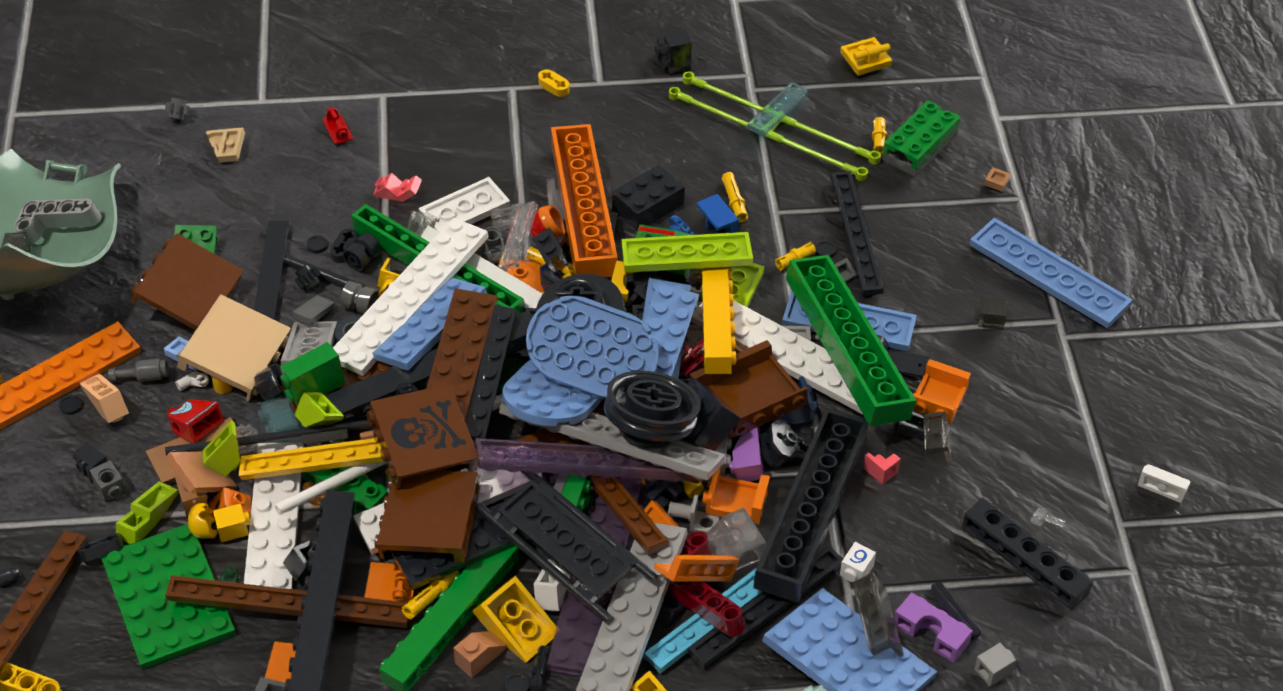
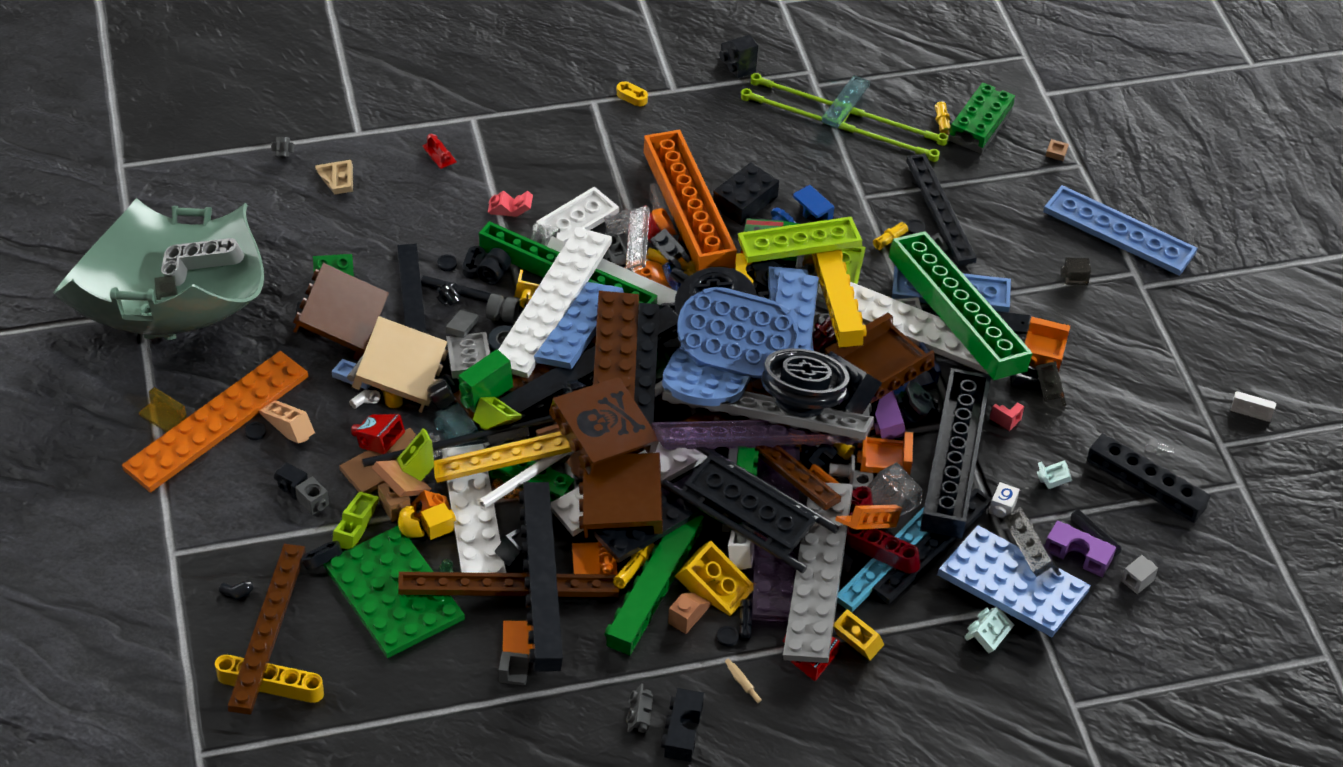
camera: 10 degrees left, 0 degrees up
(144, 371) = (318, 393): dark grey piece -> none
(736, 203) = (825, 189): yellow pin -> none
(867, 56) = (916, 45): yellow plate -> none
(920, 539) = (1054, 474): none -> light aqua bracket

